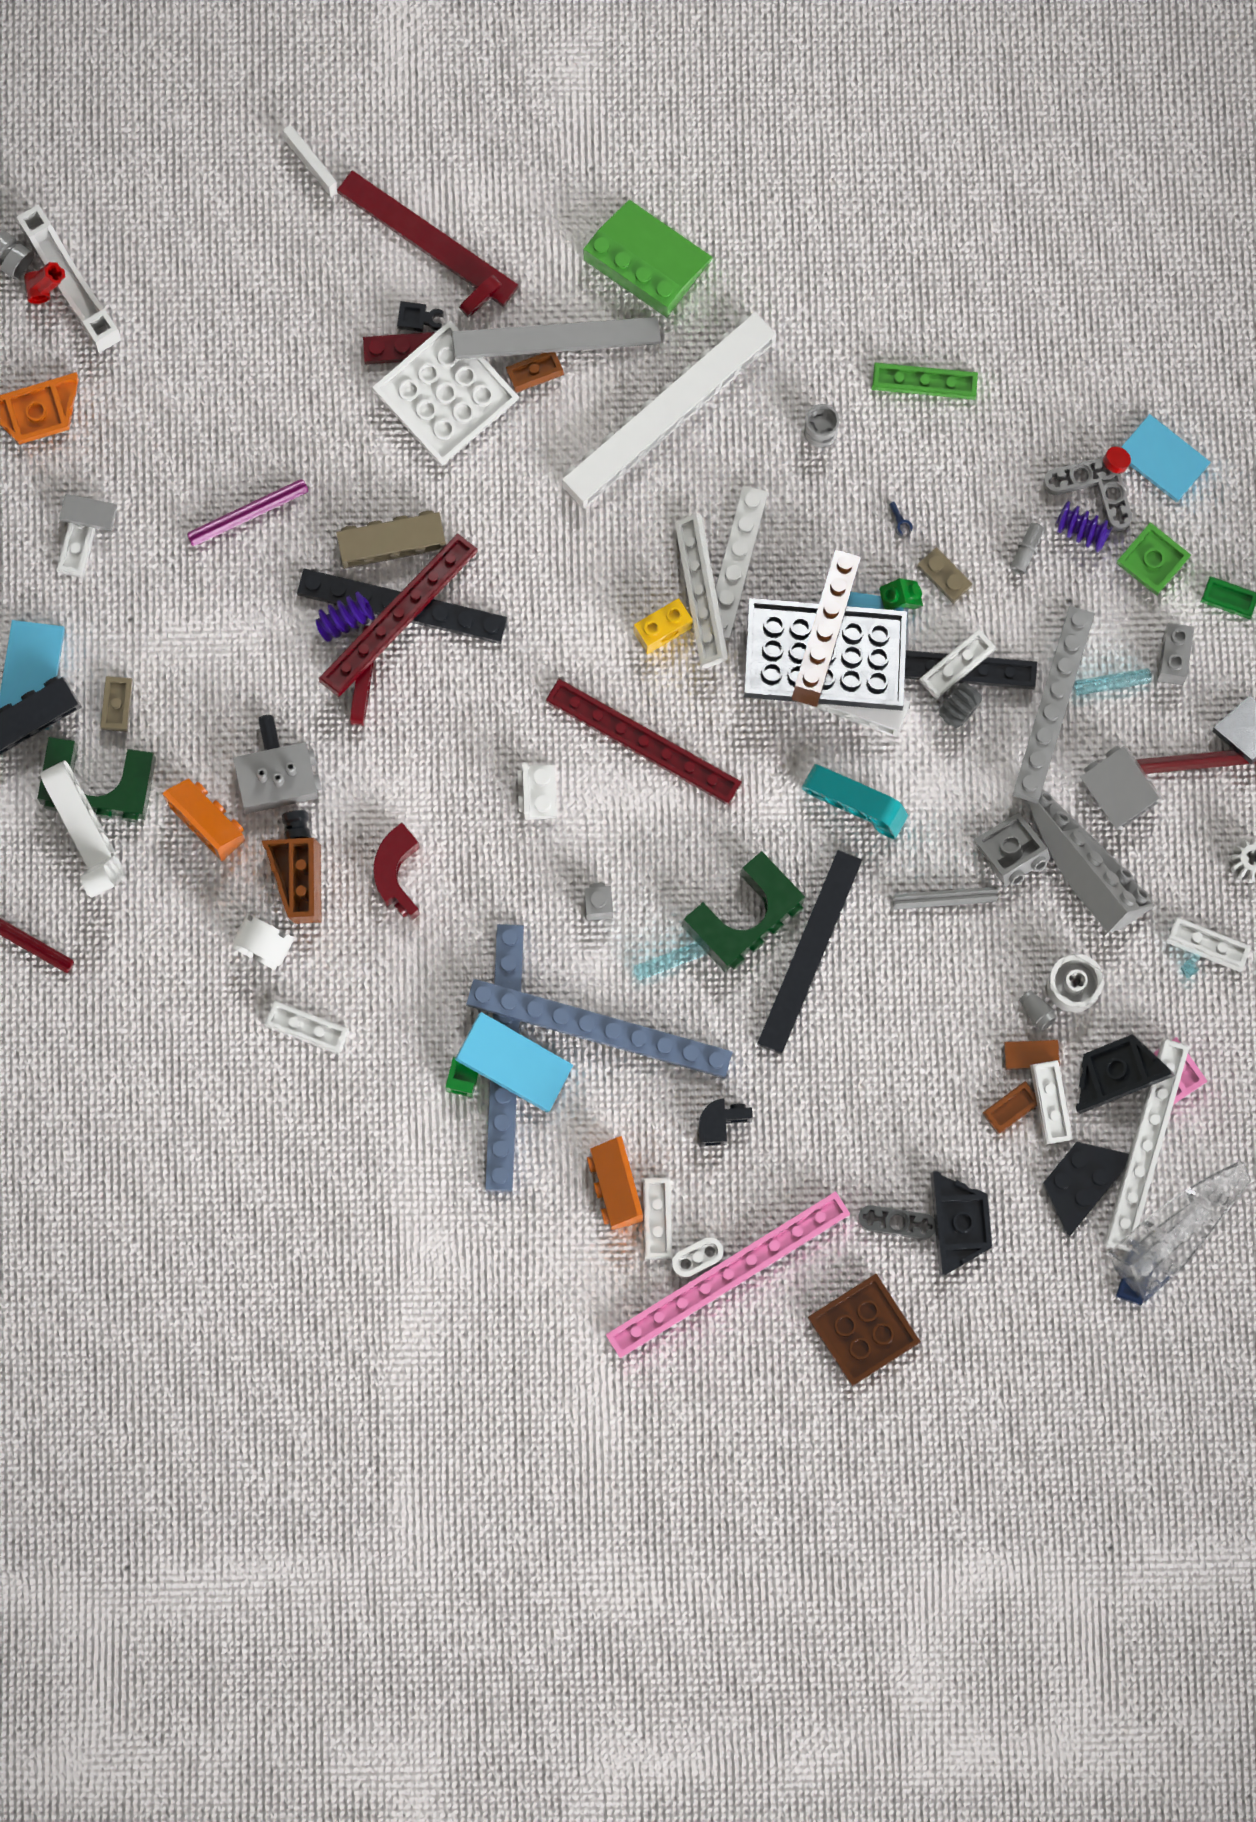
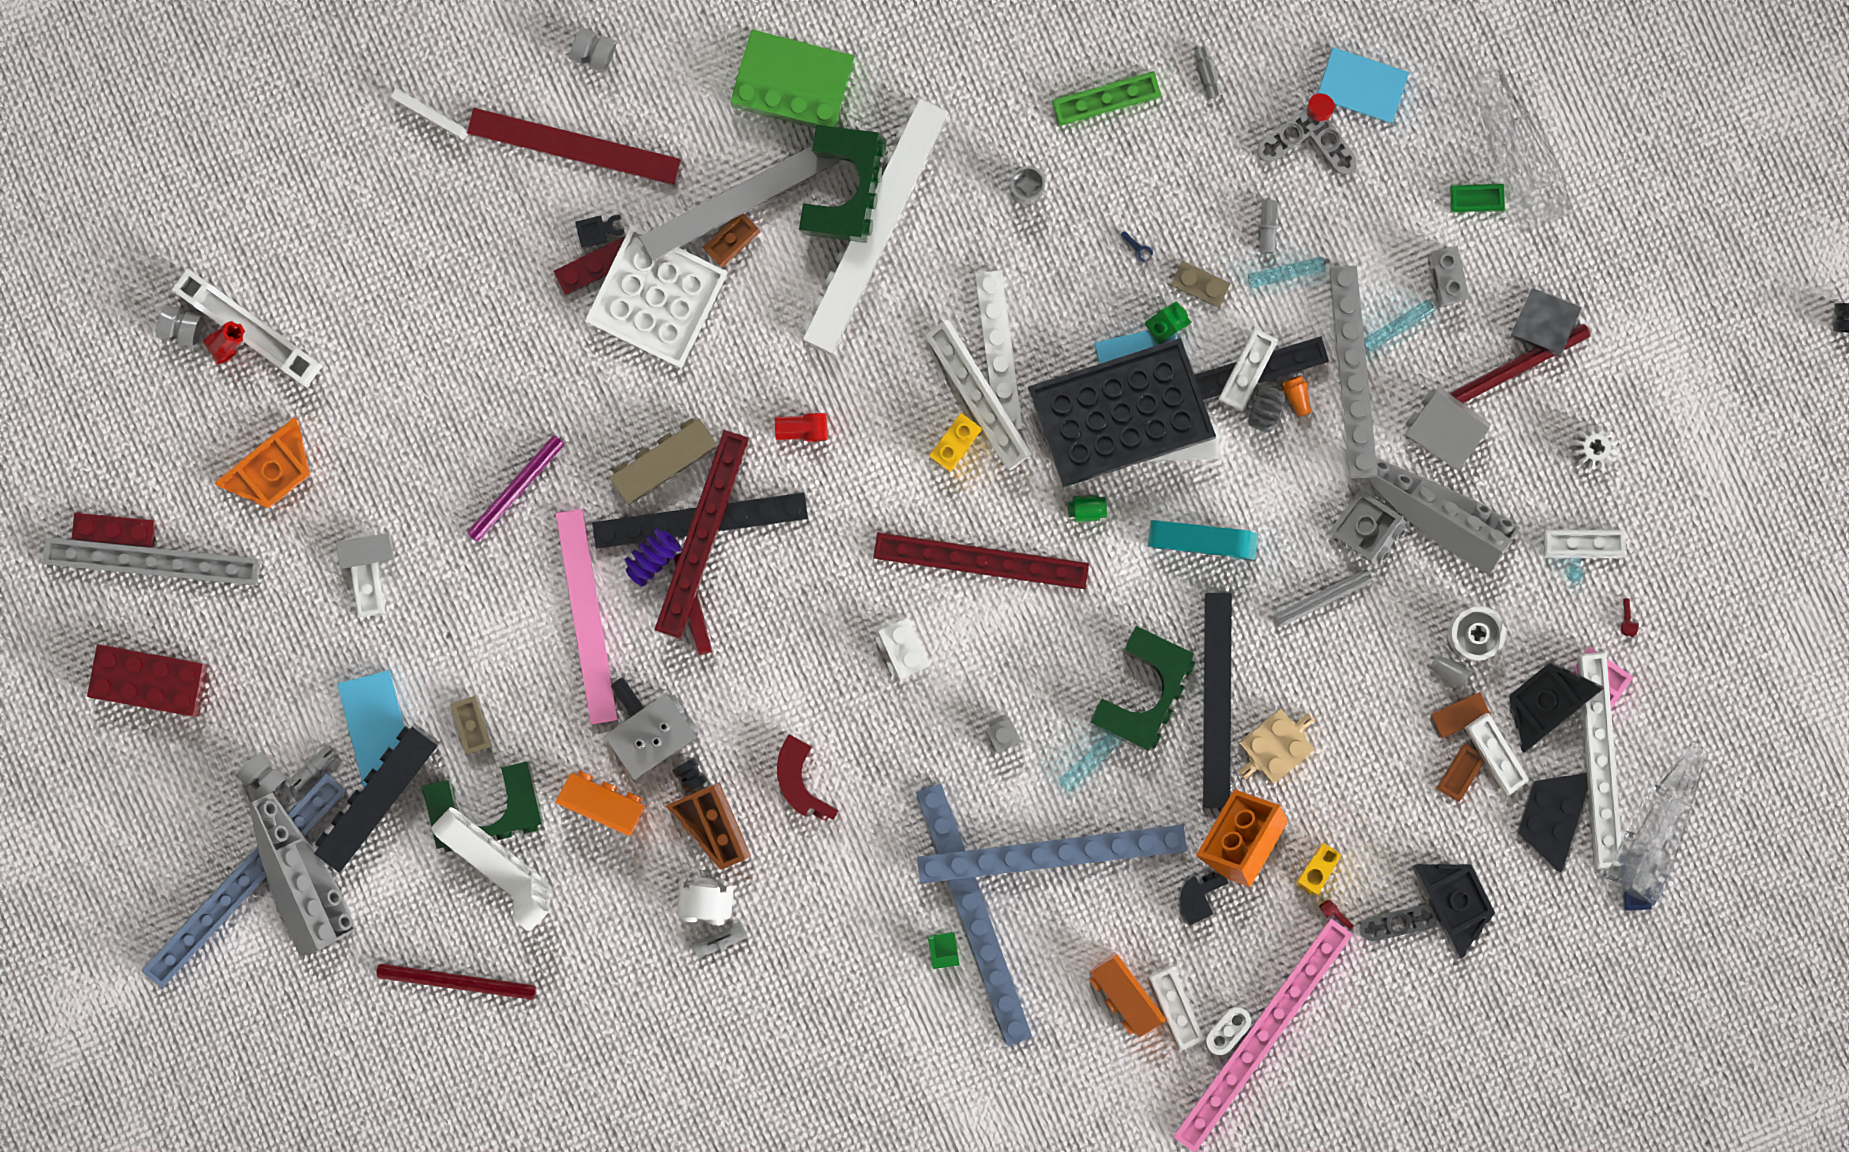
camera: 25 degrees left, 10 degrees up
(260, 986) = (732, 936): none -> light grey pin
(263, 650) = (586, 616): none -> bright pink tile
(306, 1027) = (778, 960): white tile -> none
(476, 157) = (594, 50): none -> light grey wheel
(480, 296) = (649, 187): dark red beam -> none
(514, 1062) = (986, 919): medium azure tile -> none
(535, 562) = (810, 427): none -> red piece
(651, 389) = (852, 219): none -> dark green arch
(760, 731) = (1087, 508): none -> green brick
(783, 1081) = (1243, 837): none -> orange slope
(826, 628) = (1114, 390): brick -> none
(839, 1183) = (1329, 908): none -> dark red hand
(841, 1142) = (1318, 869): none -> yellow leg
(848, 1015) = (1276, 746): none -> tan plate
(864, 1330) = (1407, 1036): reddish brown plate -> none
(994, 706) = (1297, 395): none -> orange cone
(1026, 393) = (1208, 72): none -> light grey axle
(1028, 595) = (1286, 272): none -> clear light blue axle
(1083, 527) = (1313, 185): dark purple piece -> none
(1153, 559) = (1391, 190): bright green plate -> none
(1220, 1036) = (1628, 627): none -> dark red hand

